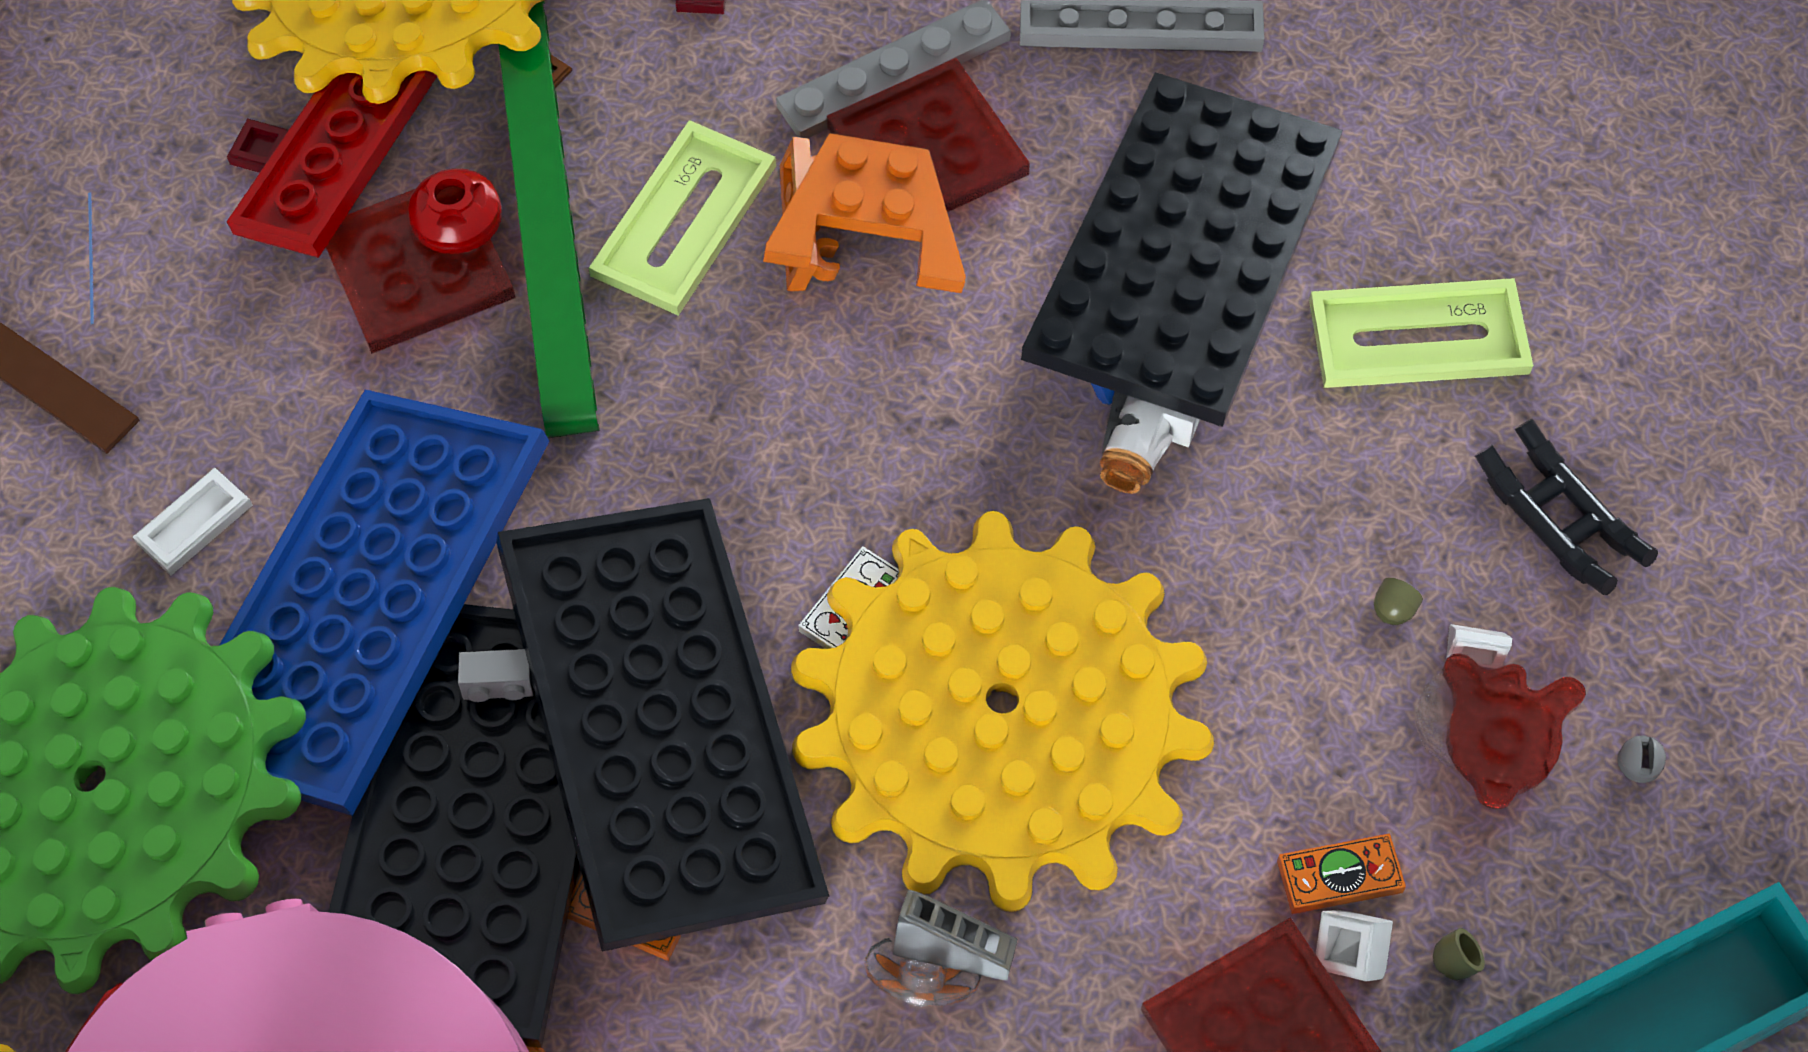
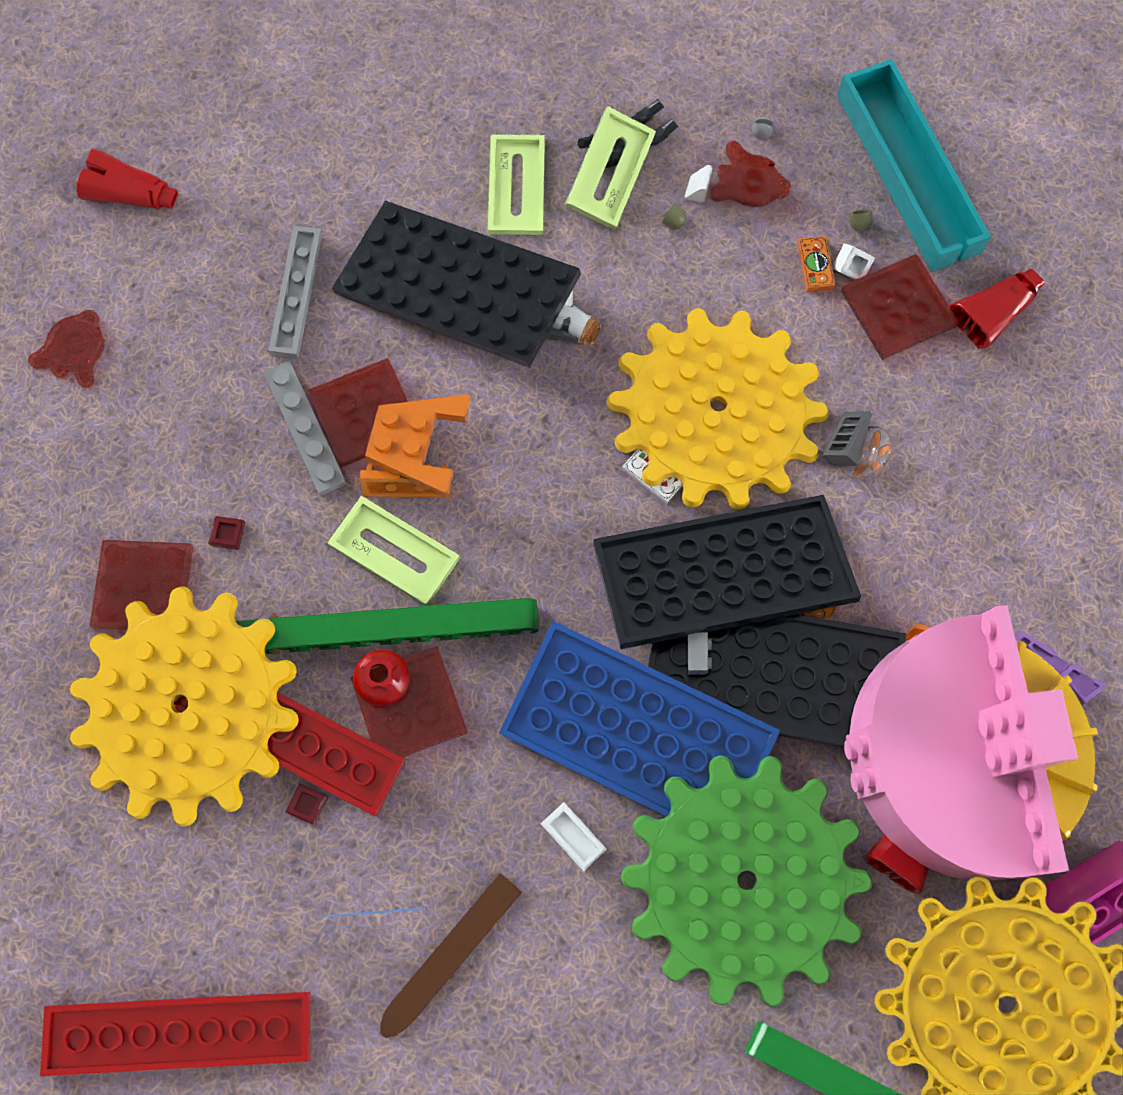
camera: 85 degrees left, 10 degrees up
(1553, 457) = (637, 143): none -> yellowish green piece

